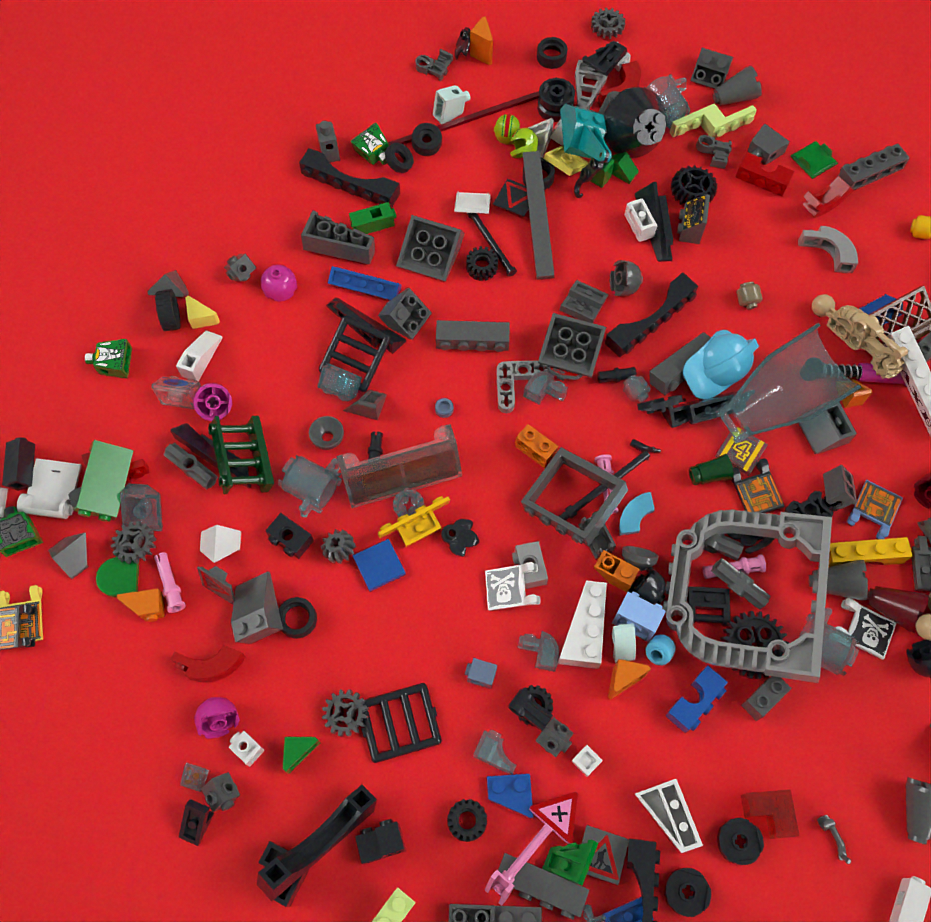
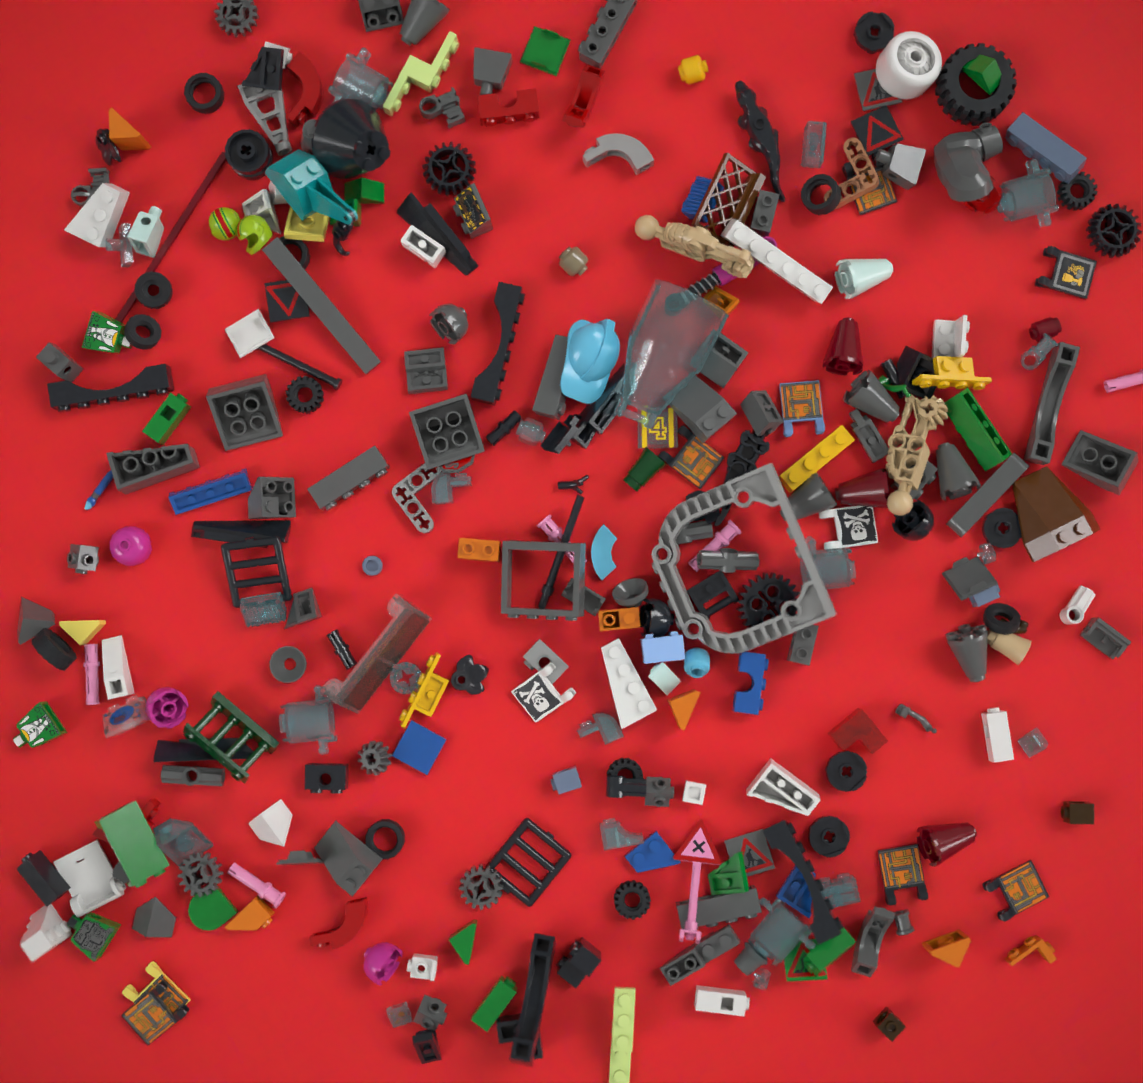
camera: 30 degrees left, 20 degrees up
(182, 344) = (91, 668): none -> bright pink pin
(281, 825) = (494, 1003): none -> green brick
(287, 236) = (91, 501): none -> blue piece
(426, 101) = (122, 245): none -> clear light blue tile
(427, 75) = (99, 215): none -> white wedge
(789, 456) = (702, 409): none -> dark grey slope

